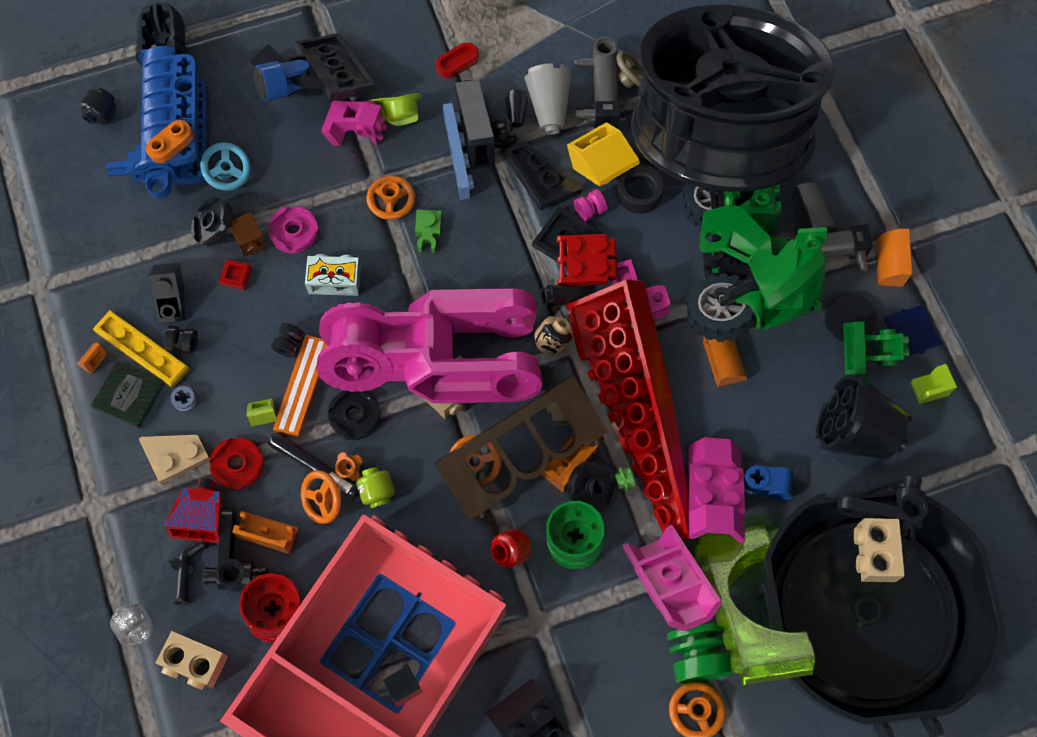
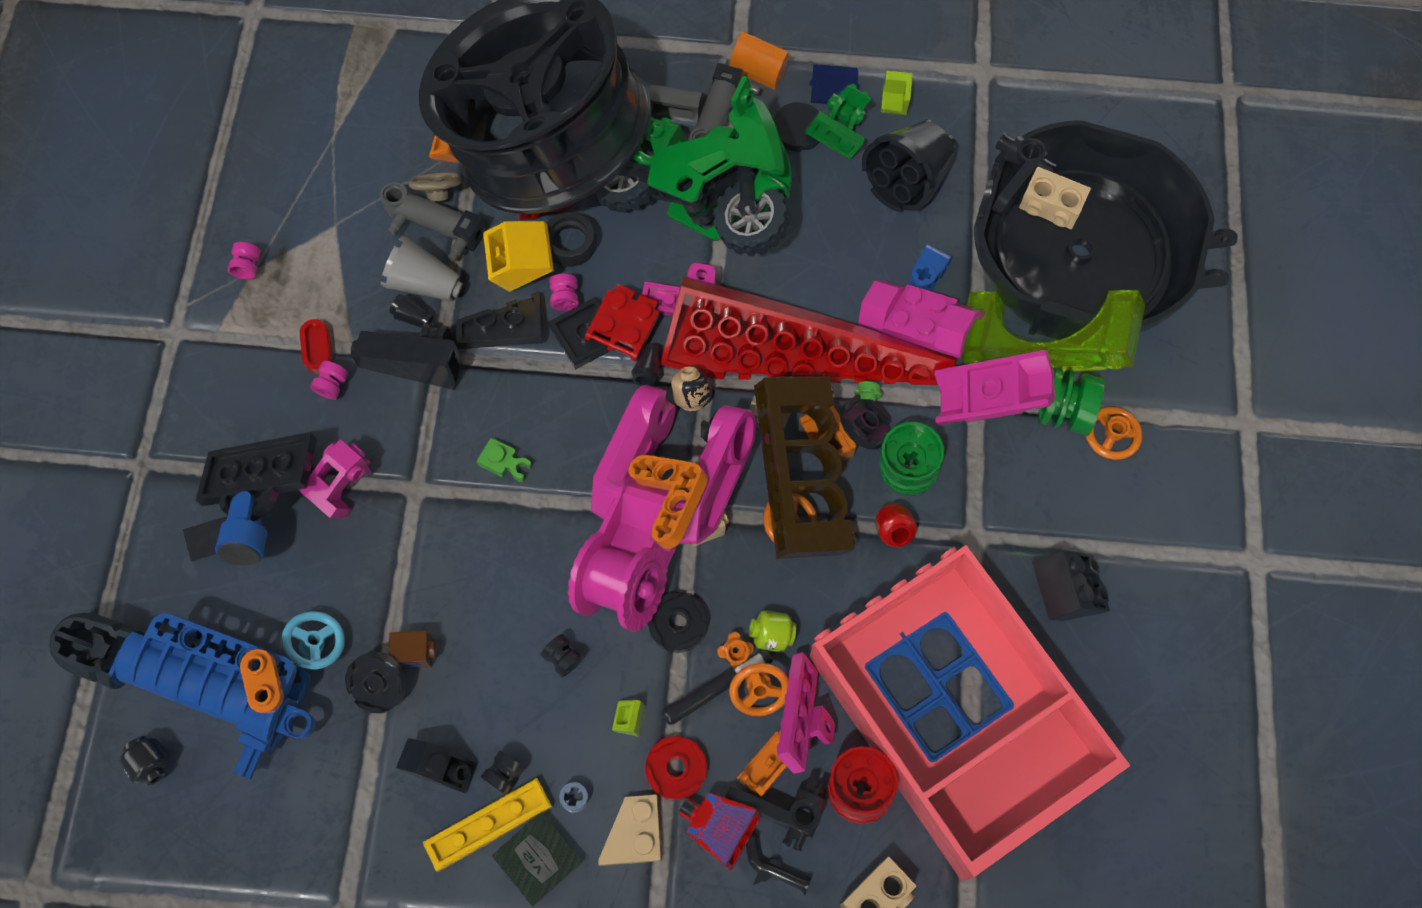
camera: 65 degrees left, 0 degrees up
(92, 358) = (469, 886): orange slope -> none
(235, 274) = (450, 684): red tile -> none
(294, 242) = (428, 617): dark pink tile -> none
(300, 389) = (620, 663): orange tile -> none
(304, 535) = (800, 717): none -> dark pink plate
(333, 275) = (509, 577): light aqua brick -> none
(389, 185) = (437, 475): orange piece -> none
(400, 109) = (351, 425): lime piece -> none
(402, 685) = (1008, 676): black panel -> none
(426, 80) = (329, 380): none -> dark pink wheel
(441, 354) = (685, 478): none -> orange beam
(459, 159) = (423, 390): medium blue plate -> none
(725, 362) = (790, 253): orange brick -> none

